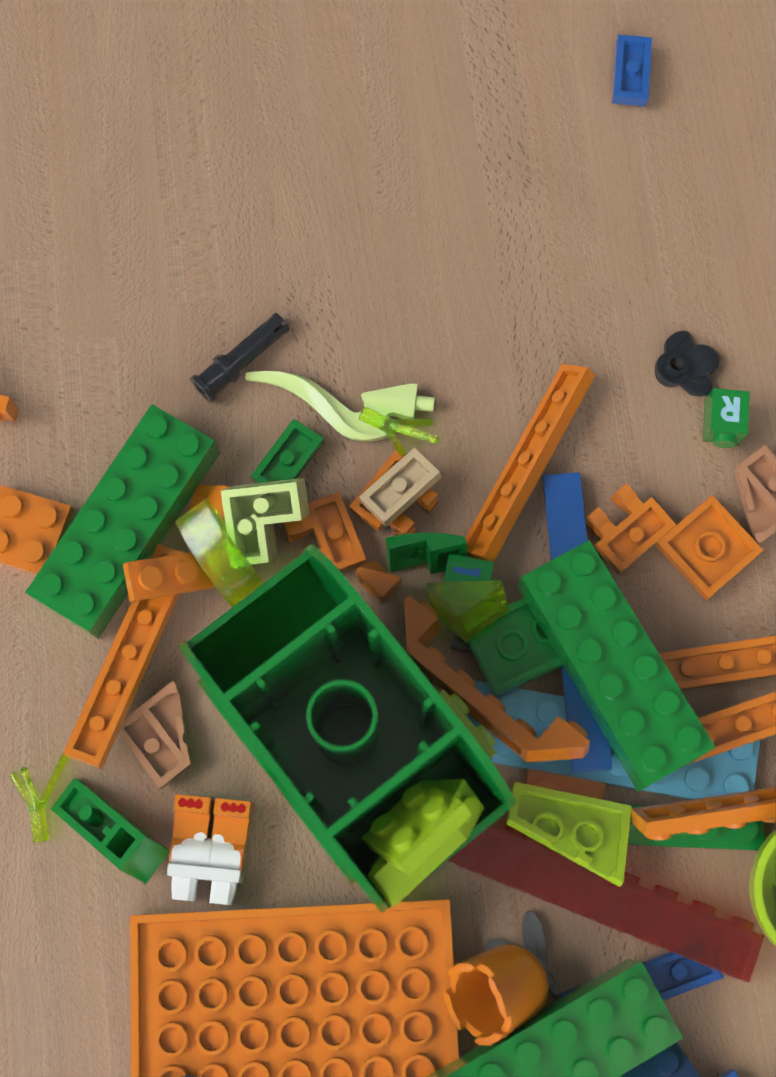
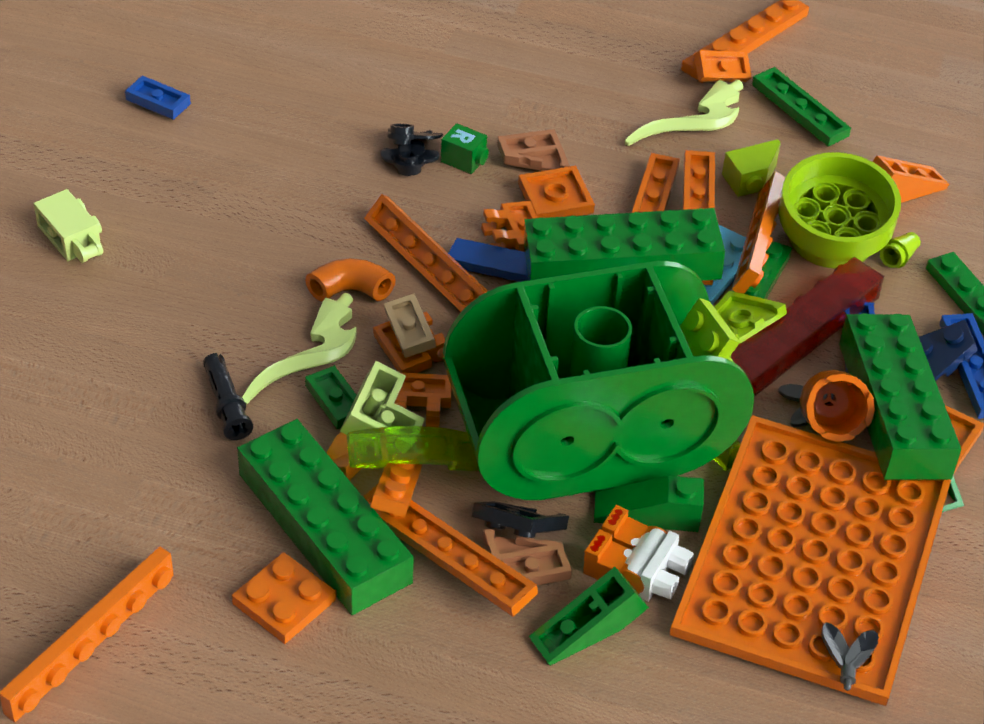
camera: 70 degrees left, 30 degrees down
(37, 809) = (544, 669): clear neon green plant -> none
(198, 719) = (523, 520): none -> black wing
(286, 839) = (659, 502): none -> green slope
(390, 95) = (69, 226): none -> yellowish green brick
(399, 425) = (352, 320): clear neon green plant -> none
(463, 392) = (350, 275): none -> orange cylinder
(713, 348) = (404, 133): none -> black plate

